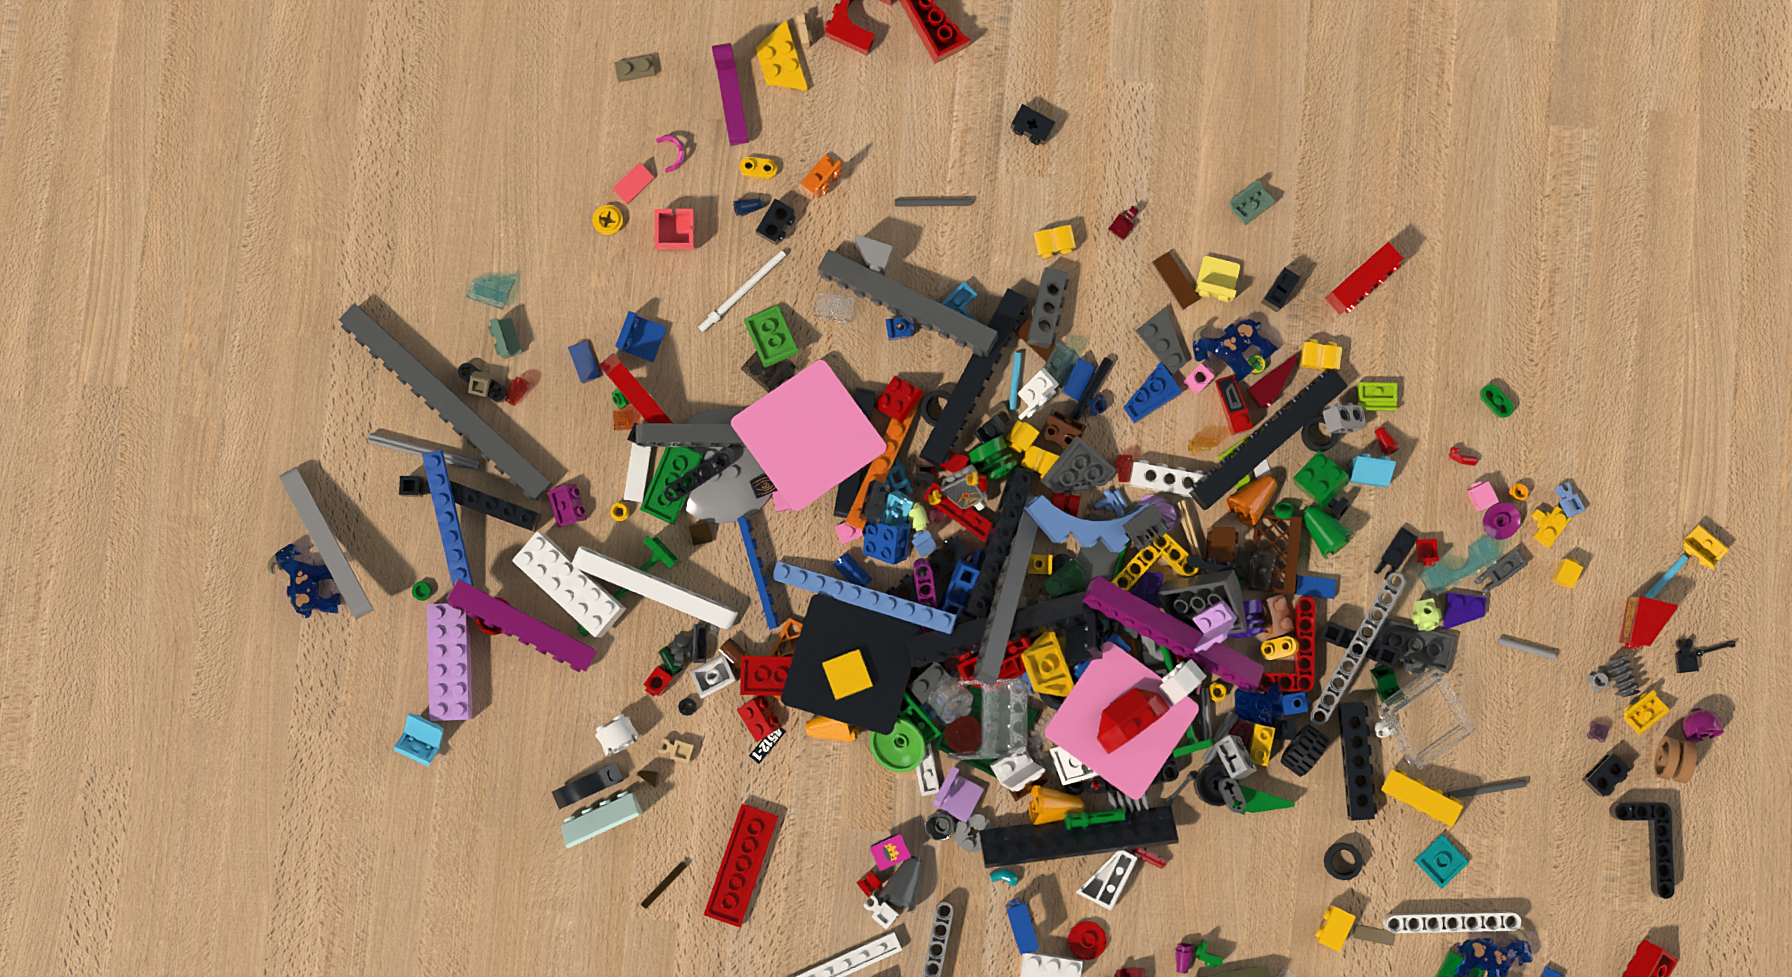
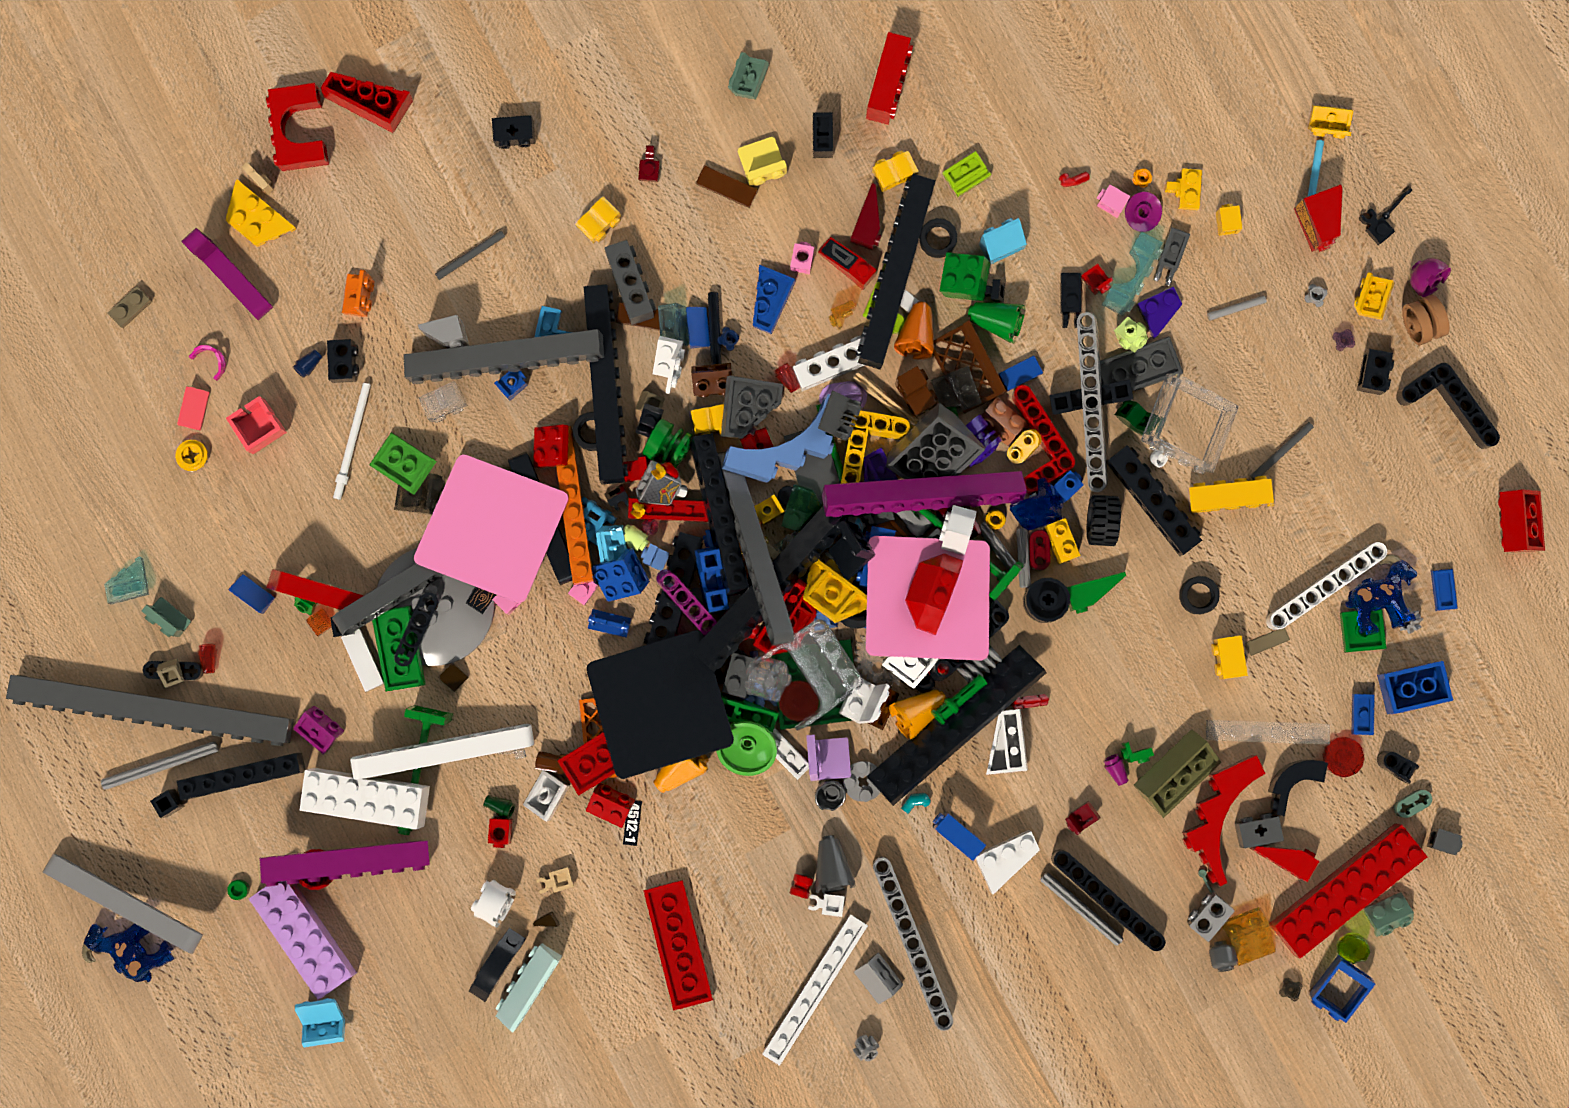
camera: 30 degrees left, 0 degrees up
(447, 516) = (215, 808): blue plate -> none
(613, 511) = (363, 701): yellow plate -> none
(640, 337) = (287, 539): blue bracket -> none
(663, 885) = (621, 1007): dark brown bar -> none
(681, 647) = (501, 788): dark grey plate -> none
(689, 701) = (541, 843): black bush -> none
(699, 643) = (514, 774): black slope -> none
(757, 169) = (295, 324): yellow plate -> none
(761, 580) = (519, 672): blue plate -> none
(847, 674) = (661, 715): yellow tile -> none
(864, 597) = (633, 638): medium blue plate -> none
(874, 502) = (587, 549): black hinge -> none
(890, 851) = (801, 846): dark pink piece -> none
(1015, 381) = (643, 364): medium azure bar -> none
(1021, 436) = (679, 408): yellow brick -> none
(1087, 940) = (1023, 810): red tile -> none
(1112, 502) = (797, 414): medium blue piece -> none
(1162, 341) = (749, 246): dark grey wing -> none
(1169, 801) = (1020, 609): dark grey hinge -> none
(1212, 564) = (917, 411): black hinge -> none
(1215, 624) = (953, 461): lavender bracket -> none
(1227, 796) = (1063, 604): dark grey beam -> none
(1232, 345) = (812, 211): clear blue animal -> none
(1235, 757) = (1047, 565): light grey brick -> none
(1257, 363) = (843, 214): tile -> none
(1284, 510) = (950, 324): green tile -> none
(1284, 729) = (1075, 514): black bracket -> none
(1344, 418) = (950, 210): light grey brick -> none
(1386, 442) = (1000, 208): red cone -> none
(1414, 665) = (1150, 385): dark grey plate -> none
(1441, 861) = (1283, 539): teal tile -> none
(1498, 399) = (1071, 109): green plate -> none
(1570, 503) = (1191, 157): medium blue plate -> none
(1622, 676) = (1334, 278): dark grey piece -> none

